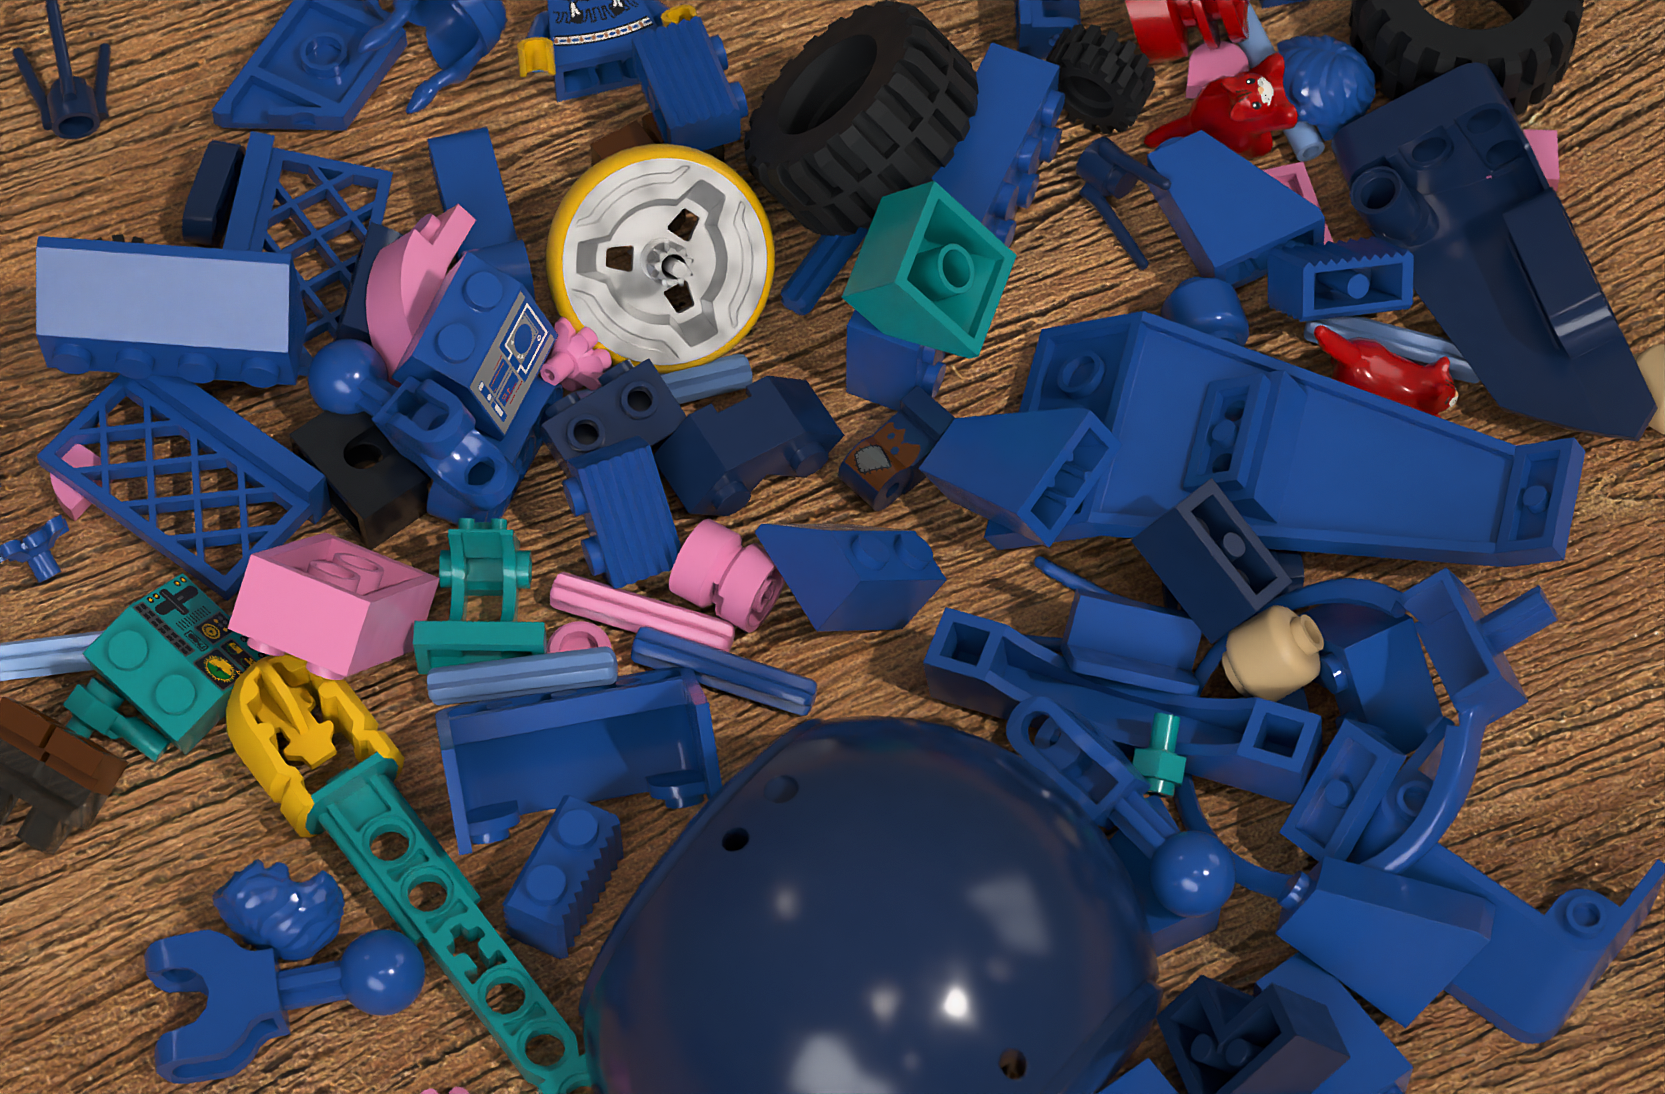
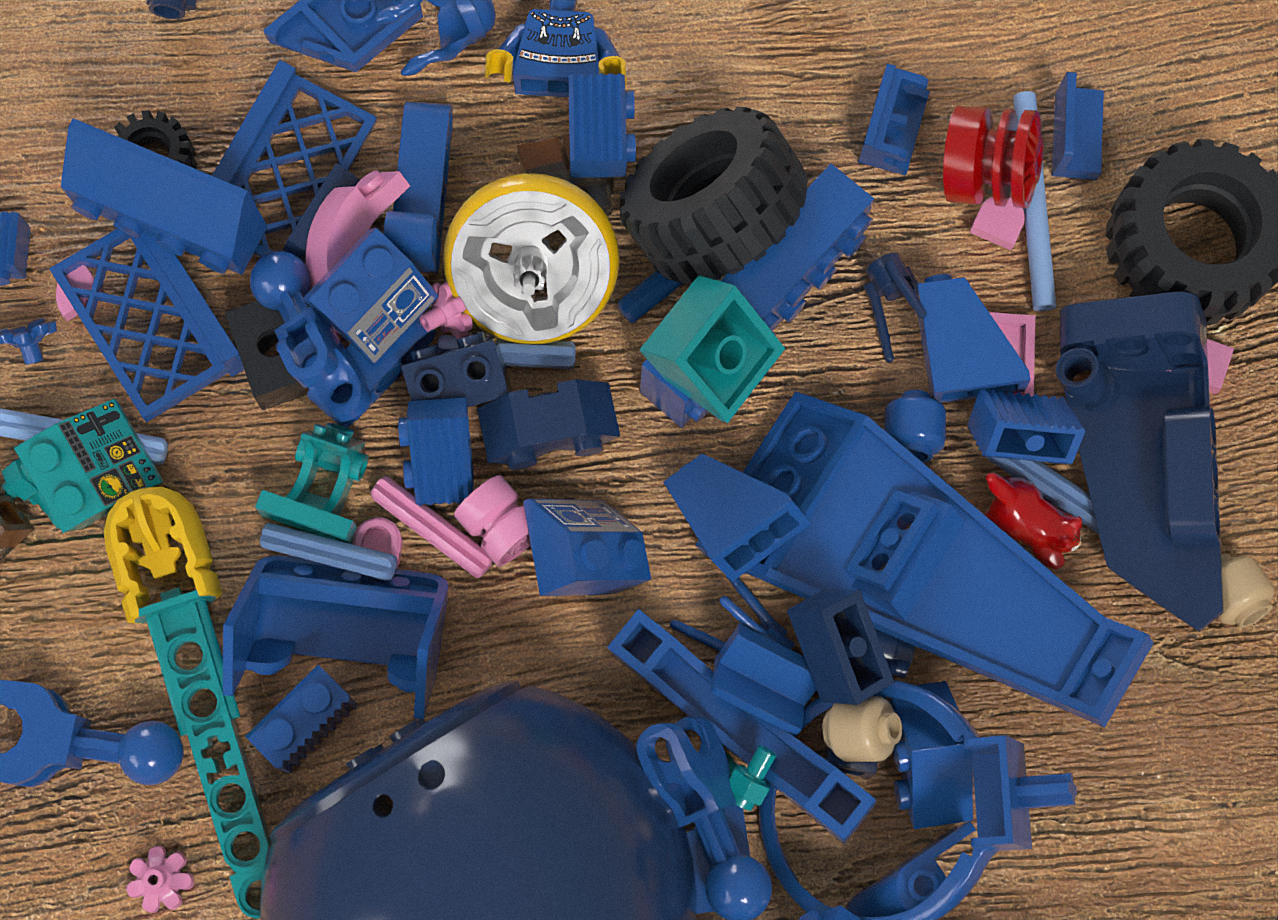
camera: 15 degrees right, 15 degrees up
(213, 194) = (240, 95): dark blue beam -> none
(279, 913) = (92, 690): blue hair -> none
(331, 605) = (200, 465): bright pink brick -> none
(726, 671) = (475, 591): blue axle -> none
(890, 459) = (654, 459): dark blue leg -> none
(1101, 78) = (906, 205): black tyre -> none
(1237, 111) = (996, 264): red animal -> none
(1326, 82) = (1068, 259): blue hair -> none
(1343, 791) = (875, 854): blue panel -> none

